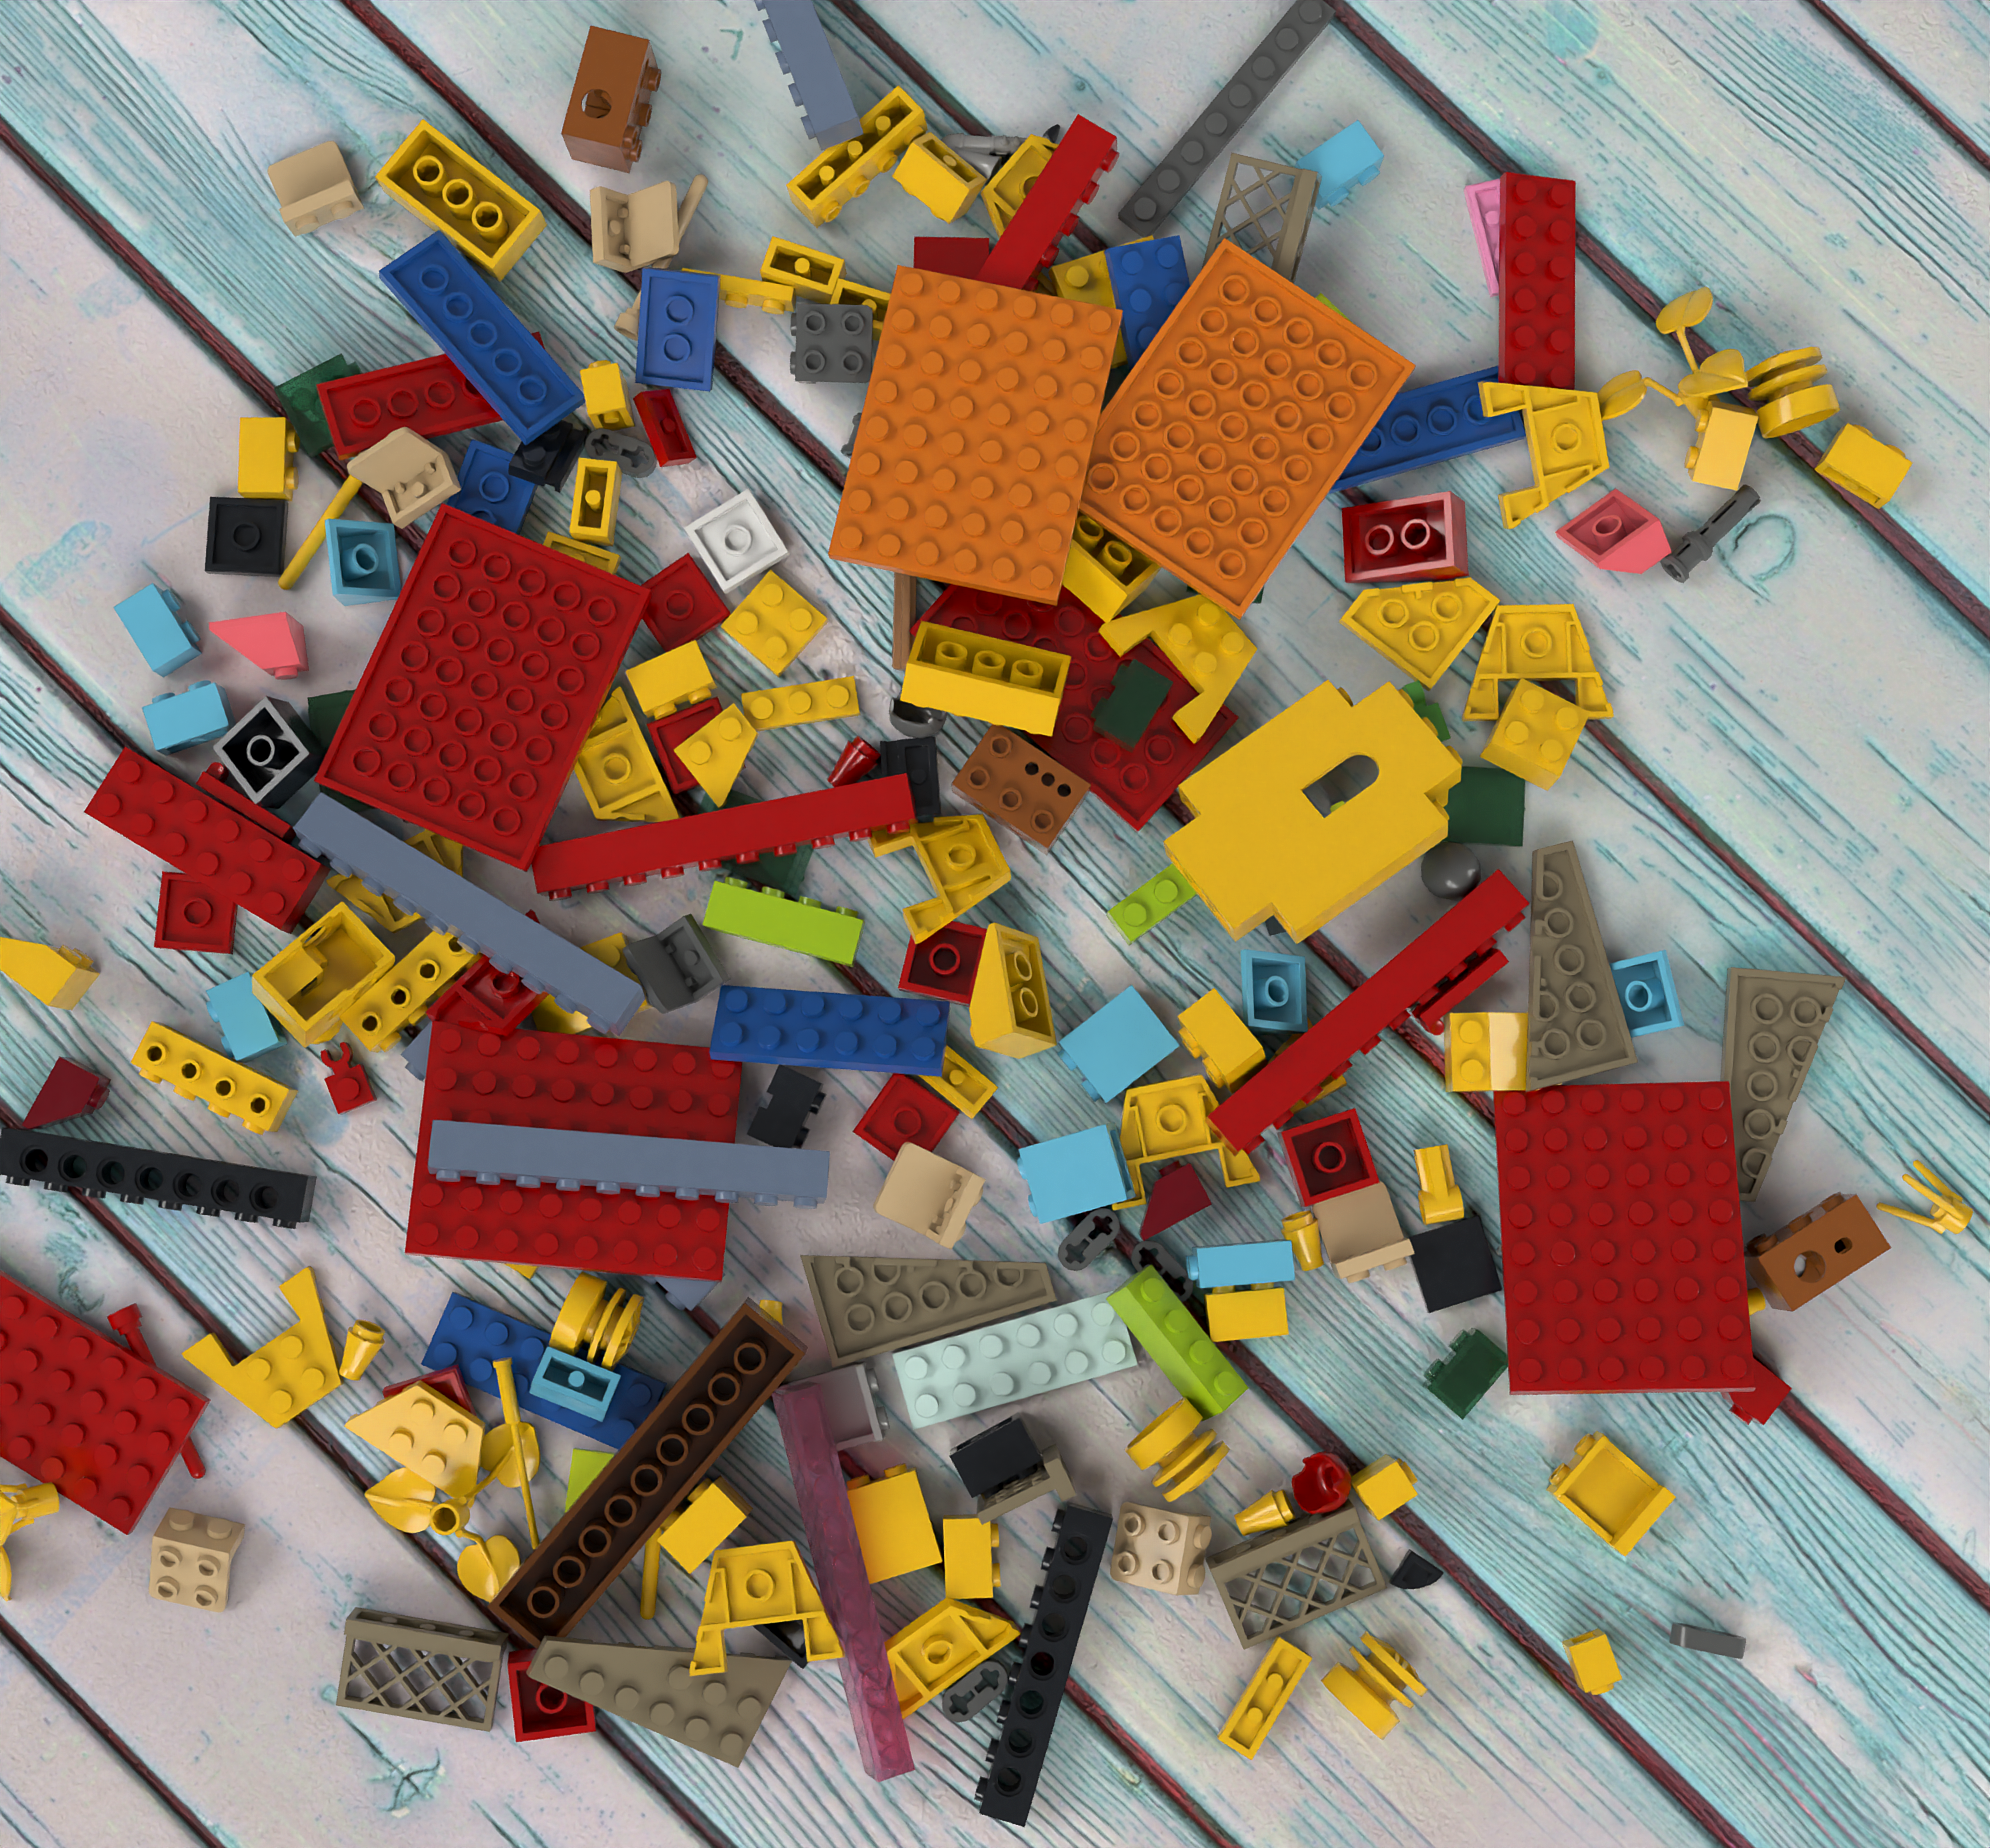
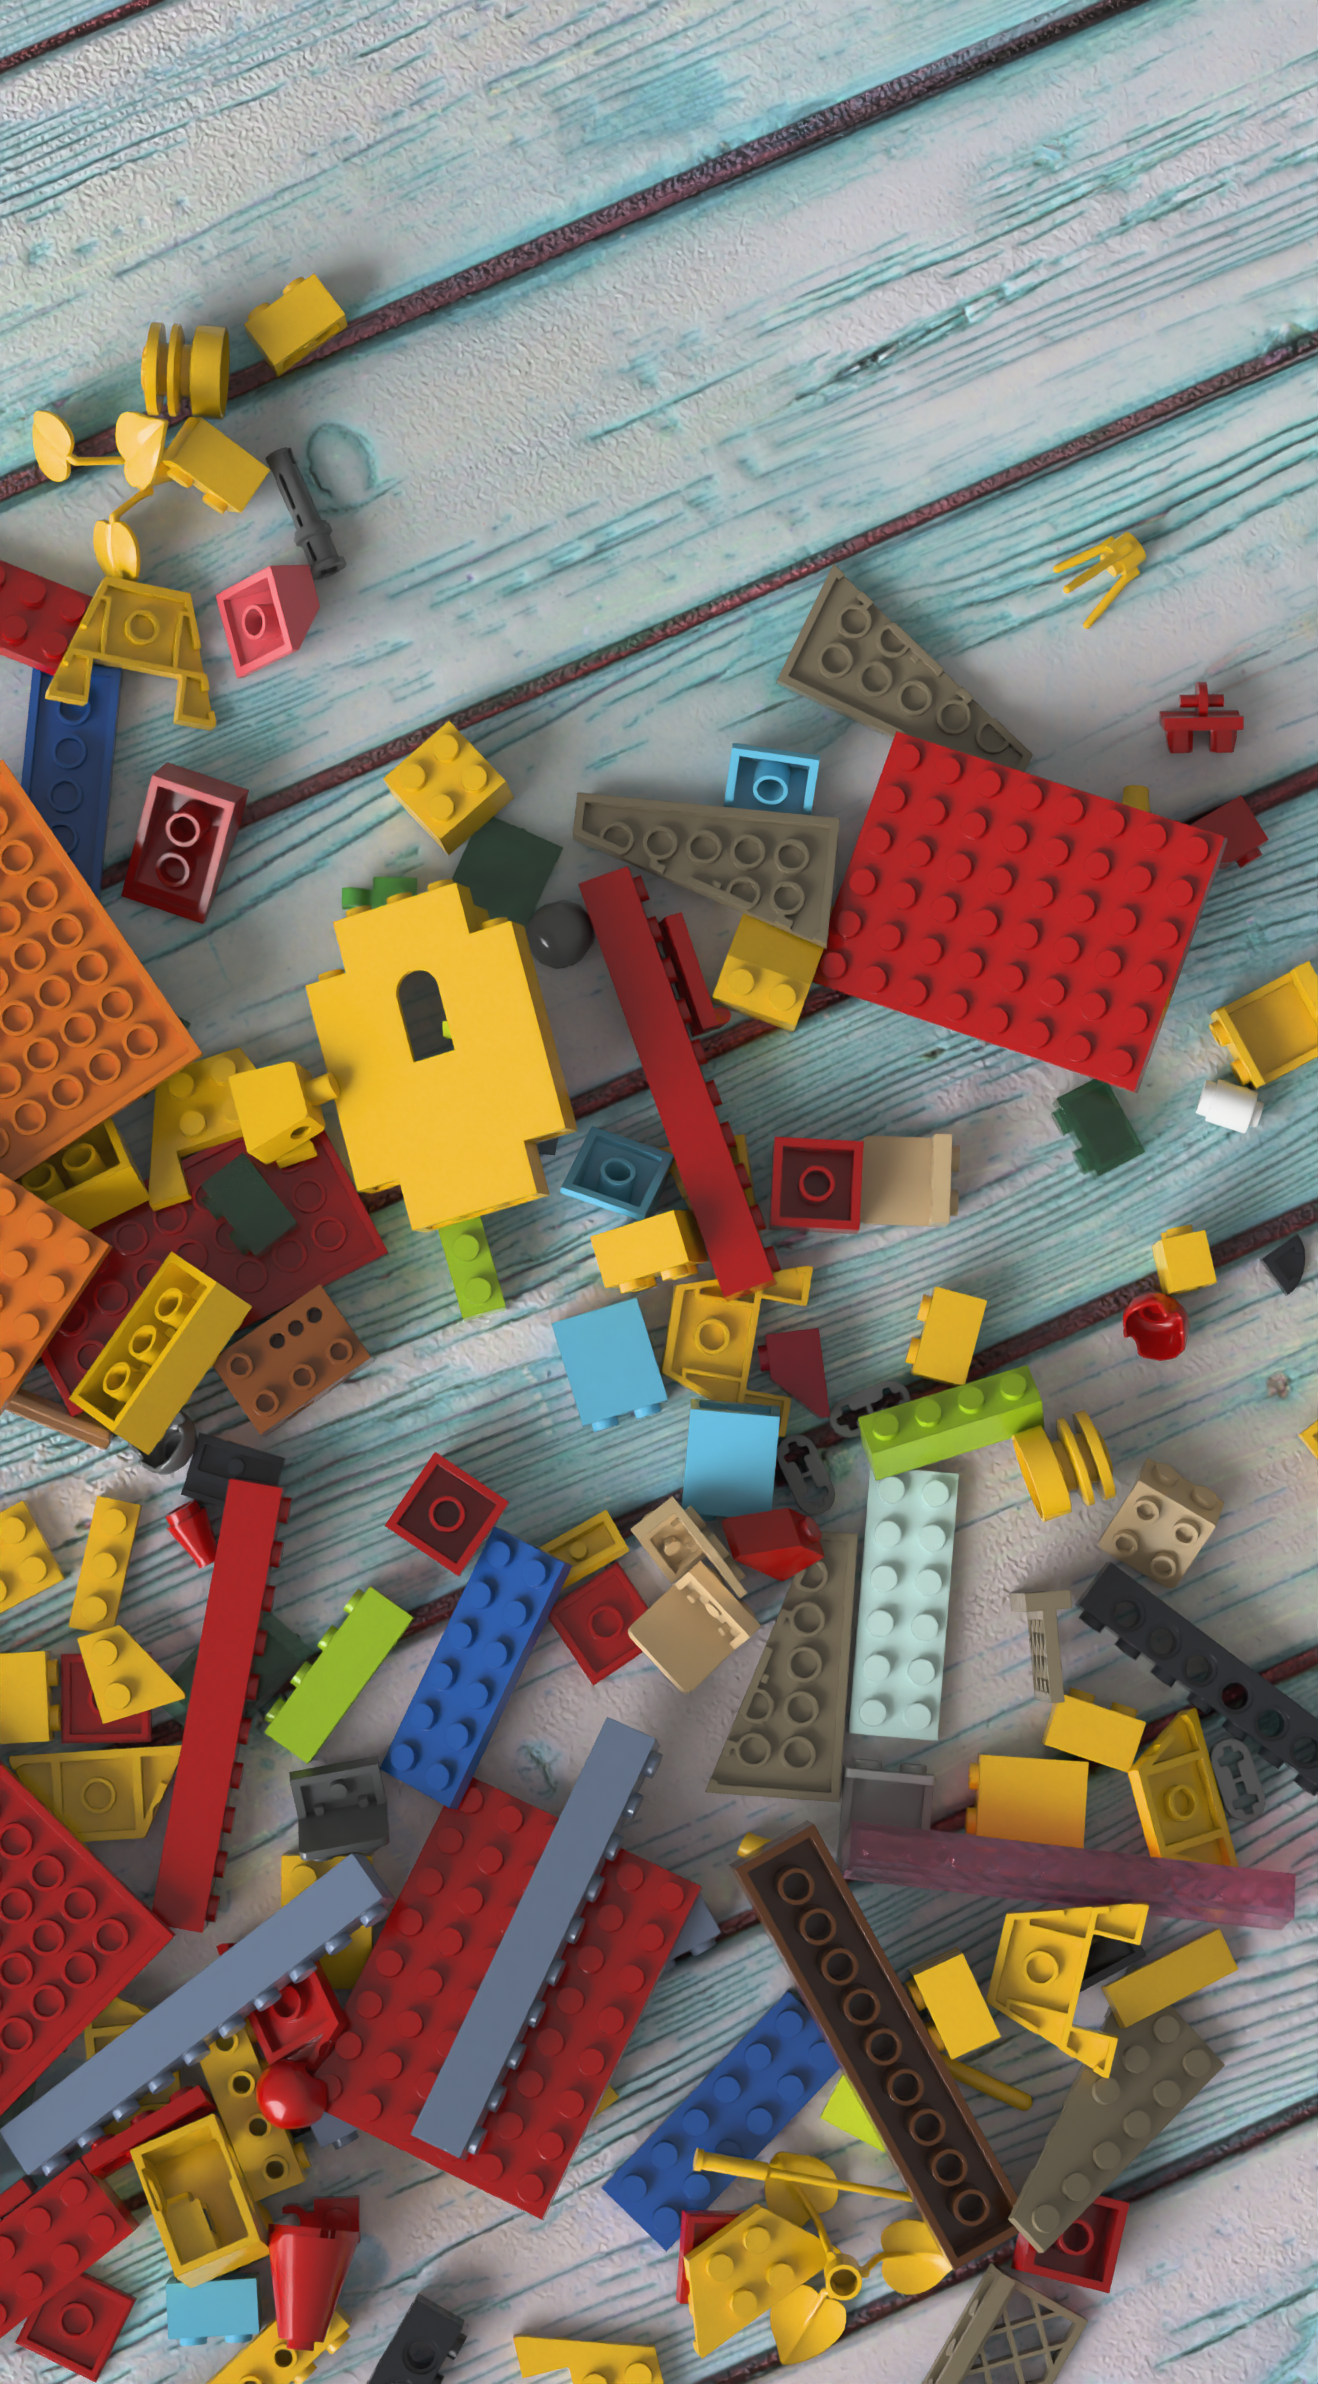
camera: 75 degrees left, 0 degrees up
(291, 1082) = (307, 2279): none -> red cone
(361, 1347) = (622, 2309): yellow cone -> none
(391, 932) = (113, 2151): none -> red plate
(431, 1011) = (290, 2095): none -> red hair
(574, 1384) = (752, 2087): medium azure brick -> none
(596, 1321) = (694, 2039): yellow wheel -> none
(788, 1110) = (544, 1745): black brick -> none
(791, 1695) = (1169, 1978): none -> yellow tile
(959, 862) = (346, 1458): yellow wing -> none
(992, 1156) = (678, 1543): none -> tan bracket
(996, 1456) = (999, 1661): black brick -> none
(1011, 995) = (513, 1457): yellow slope -> none
(1023, 1234) = (774, 1541): none -> red slope
(1221, 697) = (280, 1107): none -> yellow torso
(1241, 1263) = (893, 1321): medium azure brick -> none
(1266, 1513) = (1166, 1397): yellow cone -> none
(1283, 1542) = (1203, 1395): dark tan fence -> none
(1305, 1239) = (890, 1244): yellow cone -> none
(1420, 623) = (281, 861): yellow plate -> none
(1439, 1195) = (900, 1082): yellow piece -> none
(1453, 1264) = (979, 1096): black tile -> none
(1528, 1476) = (1229, 1105): none -> white brick
(1535, 646) = (353, 748): yellow wing -> none
(1830, 1238) = (1103, 690): dark orange piece -> none
(1842, 1349) = (1220, 723): none -> red hips

